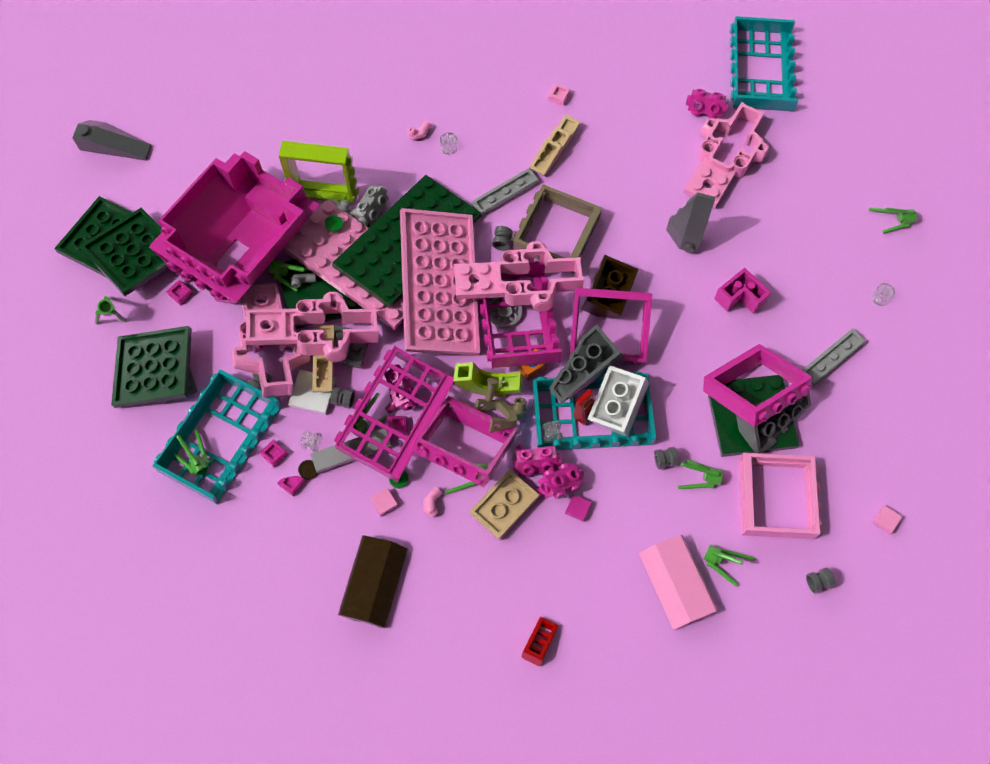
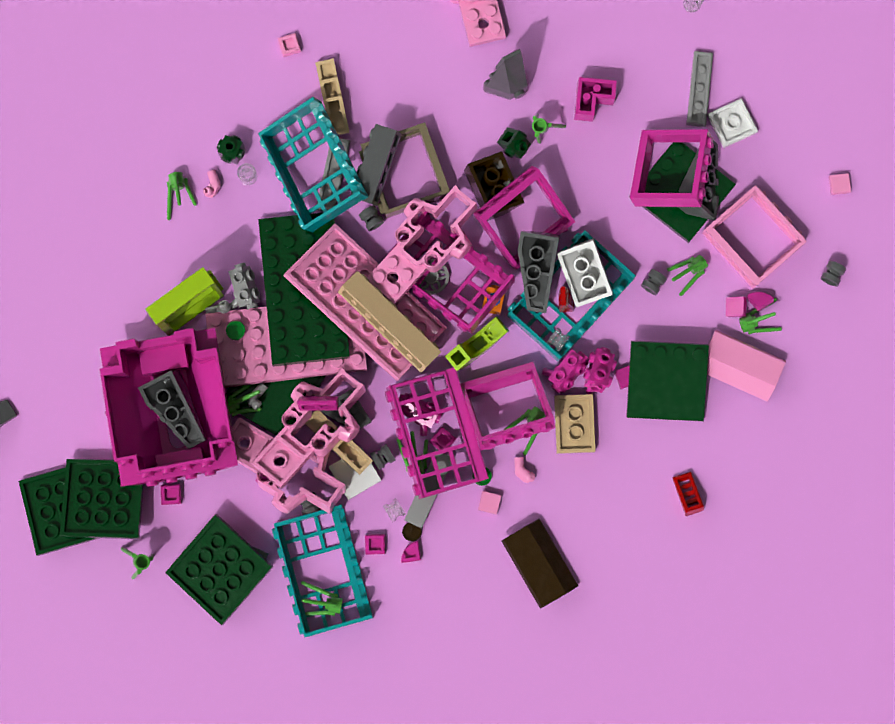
camera: 45 degrees left, 15 degrees up
(244, 230) = (173, 404): none -> dark grey wedge
(333, 312) = (318, 403): none -> dark pink slope
(397, 111) = (177, 183): none -> bright green plant
(440, 305) = (389, 321): none -> tan brick
(454, 119) = (234, 154): none -> dark green brick
(494, 203) = (339, 152): none -> teal window
(511, 412) = (515, 351): dark tan piece -> none
(539, 201) = (377, 161): none -> dark grey brick
(606, 537) = (667, 380): none -> dark green plate
(653, 274) = (514, 143): none -> dark green brick
(684, 275) = (541, 126): none -> bright green plant
(715, 534) = (736, 307): none -> tile
(739, 546) = (760, 300): none -> dark pink tile
(837, 402) = (732, 123): none -> white tile

